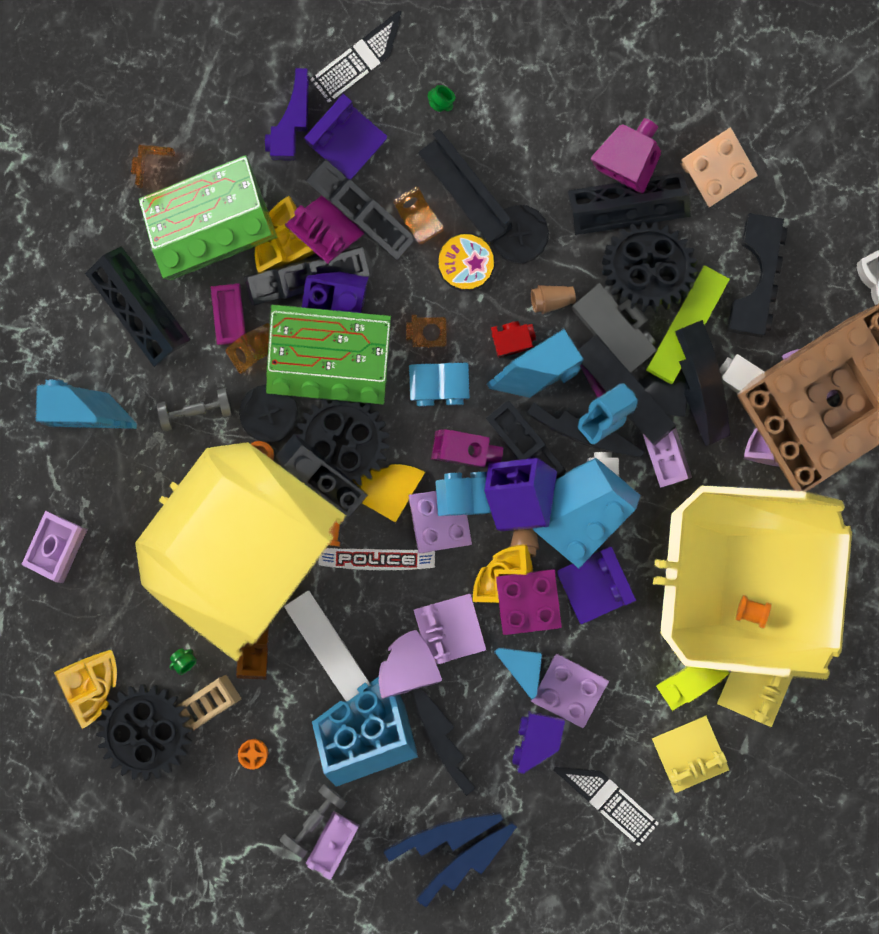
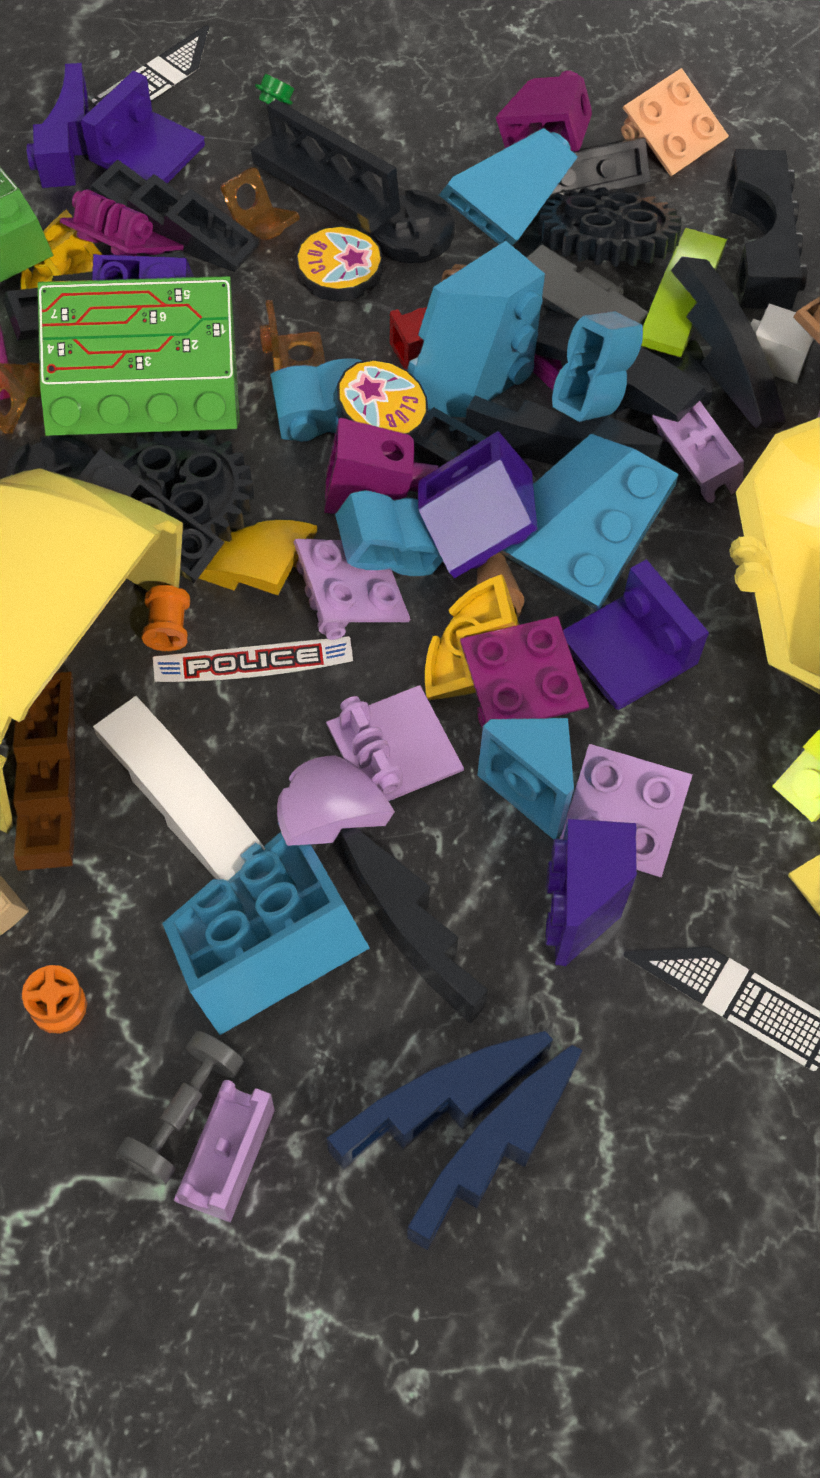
camera: 15 degrees left, 25 degrees down
(474, 403) = (381, 397): none -> tile
(588, 230) = (511, 186): none -> dark azure slope

